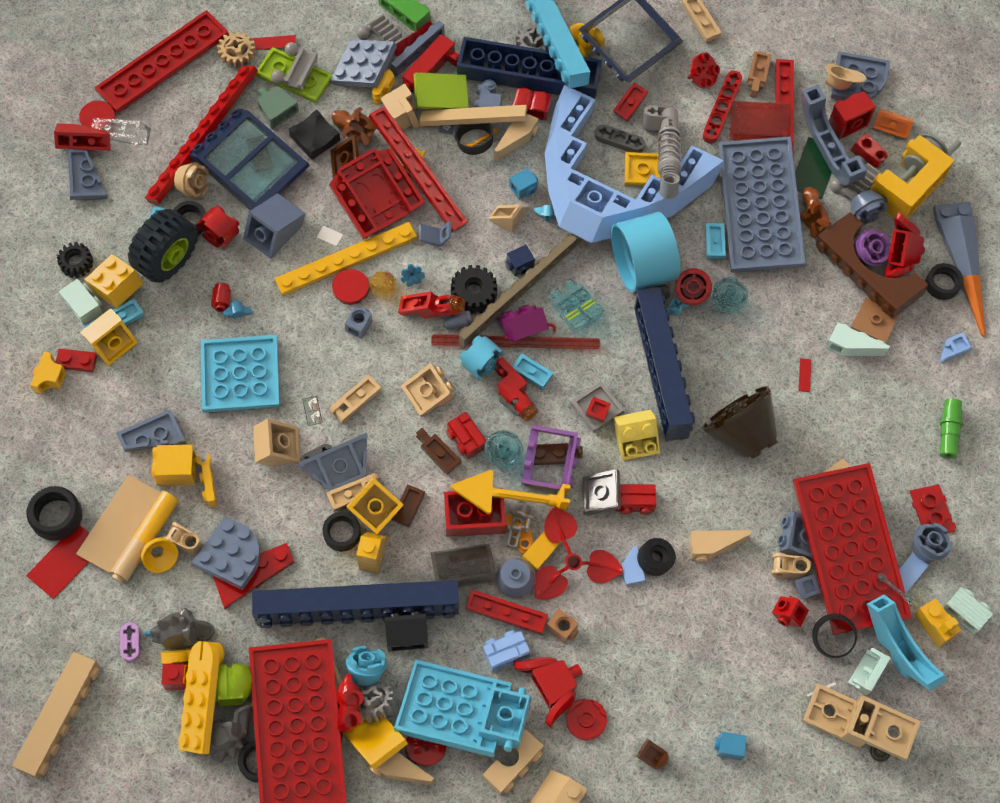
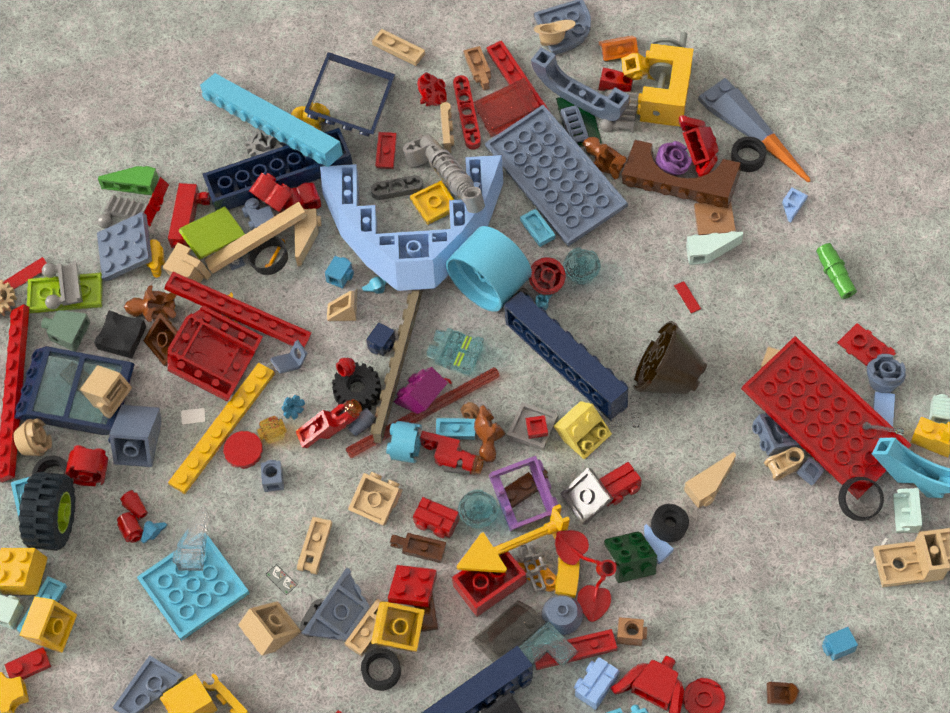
camera: 25 degrees left, 5 degrees down
(236, 280) = (134, 504): none -> red cone
(259, 339) = (192, 545): none -> clear slope
(270, 174) = (106, 390): none -> tan plate
(371, 551) = (421, 670): yellow slope -> none
(410, 479) = (412, 586): none -> red plate
(412, 52) = (165, 204): sand blue plate -> none
(474, 266) = (345, 366): none -> red plate
(485, 590) = (551, 641): none -> clear light blue plate
(508, 84) = (270, 192): none -> red brick
(553, 363) = (470, 410): none -> medium nougat plate
(555, 390) = (487, 433): none -> dark orange animal
(605, 565) = (632, 556): none -> dark green bracket
(695, 110) = (447, 126): none -> tan plate
(790, 611) = (811, 500): red brick -> none
(807, 158) = (571, 114): none -> sand blue slope
(851, 114) = (582, 57): red brick -> none
(867, 206) = (646, 126): sand blue cone -> none
(892, 147) = (635, 66): none -> yellow brick

